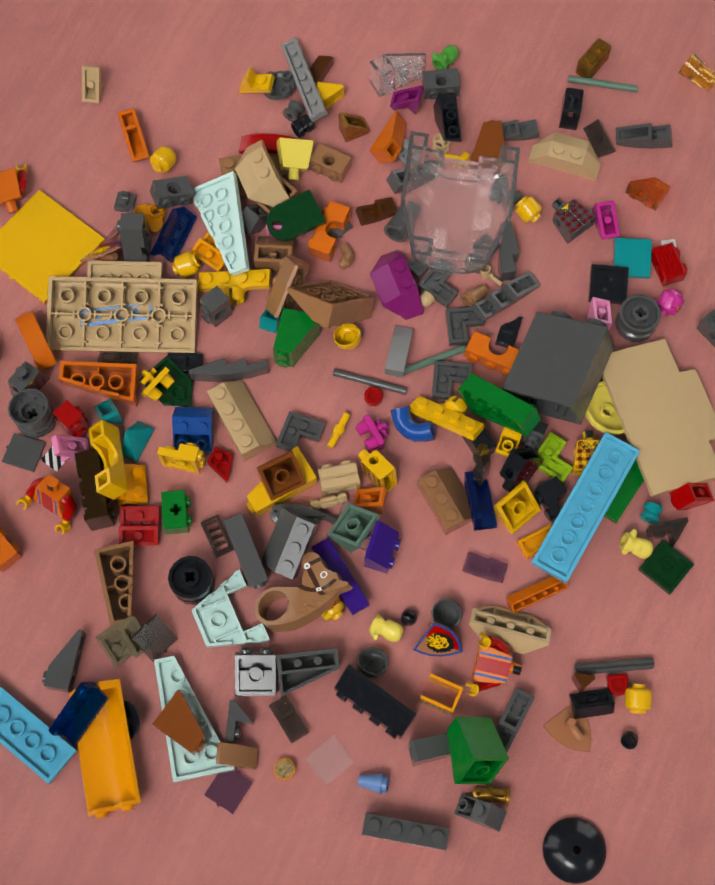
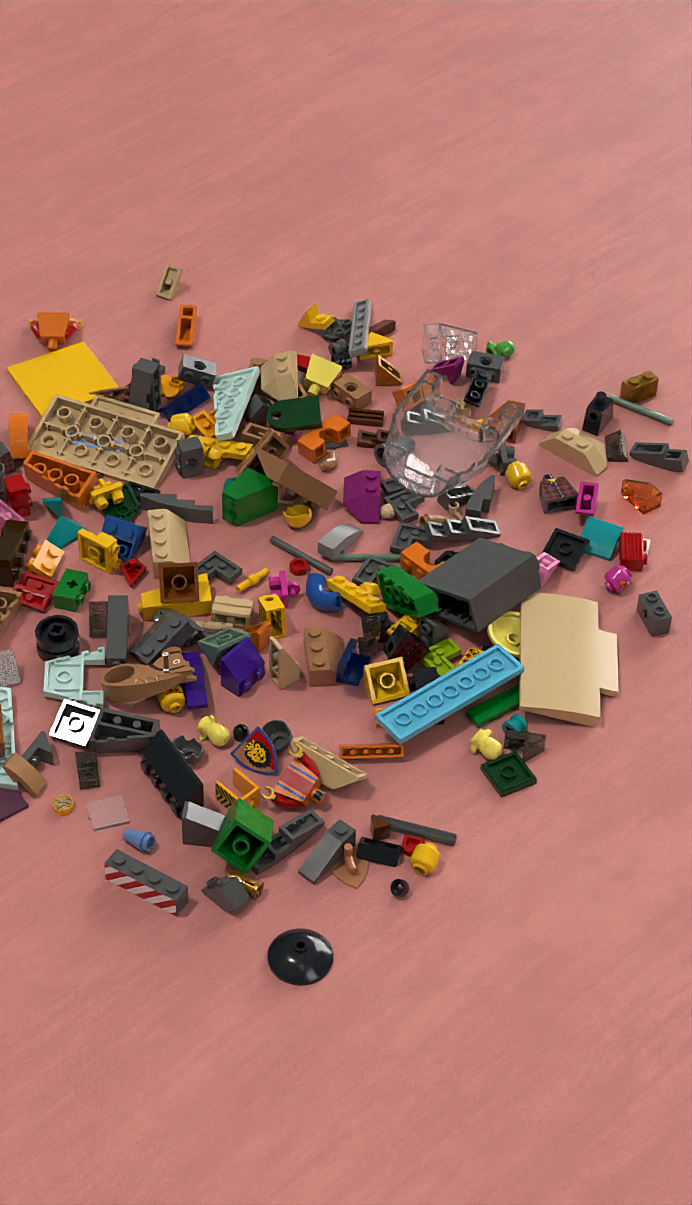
camera: 20 degrees right, 25 degrees down
(106, 440) = (29, 538): yellow arch -> none
(163, 159) = (203, 348): yellow head -> none
(354, 184) = (365, 417): none -> reddish brown tile
(418, 531) = (282, 668): none -> tan slope
(485, 568) = (329, 718): clear purple slope -> none
(550, 728) = (328, 851): none -> dark grey slope
(637, 318) = (579, 578): dark grey wheel -> none
(691, 496) = (561, 725): red slope -> none

